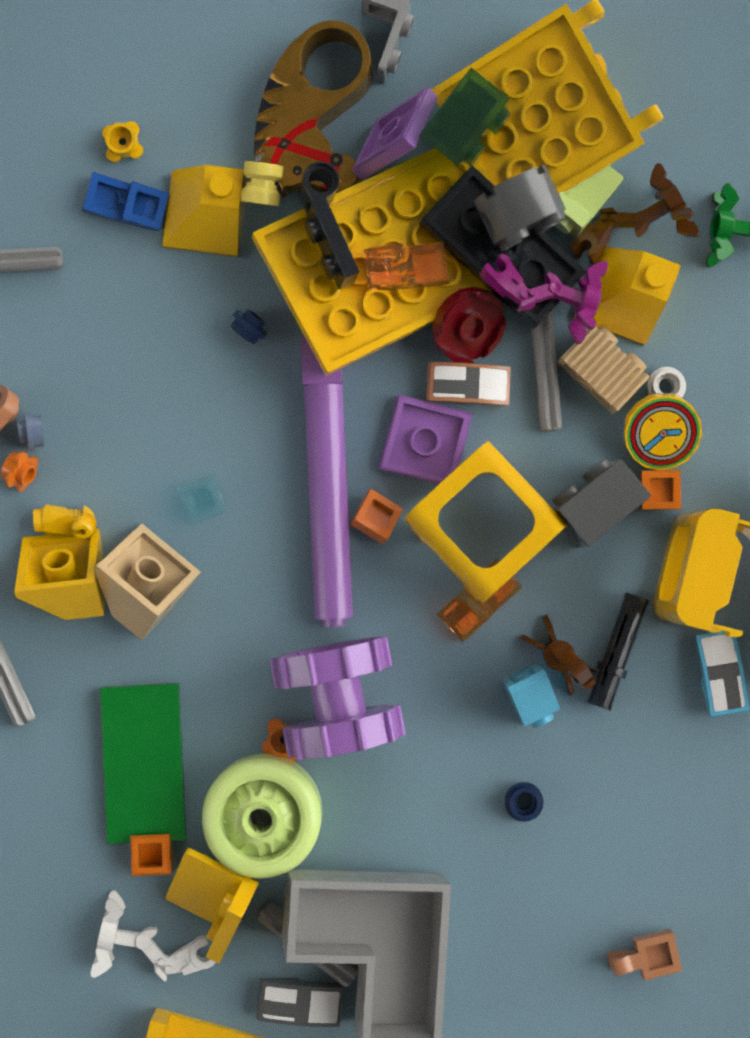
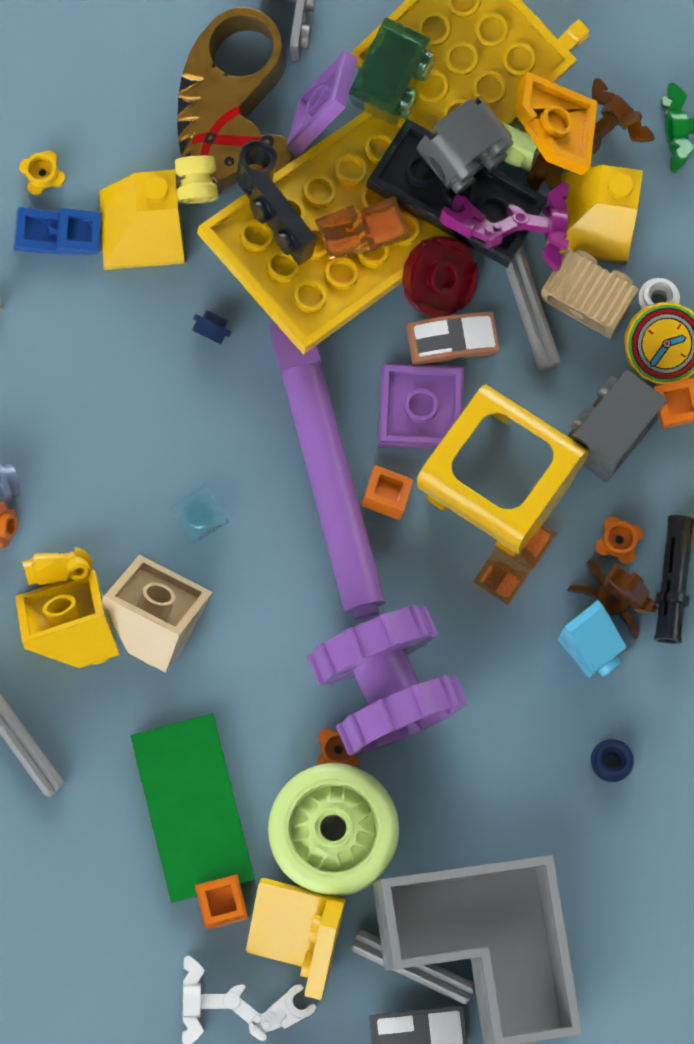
camera: 10 degrees left, 10 degrees down
(587, 600) = (615, 528): none -> orange plate
(612, 201) = (557, 122): none -> light orange plate

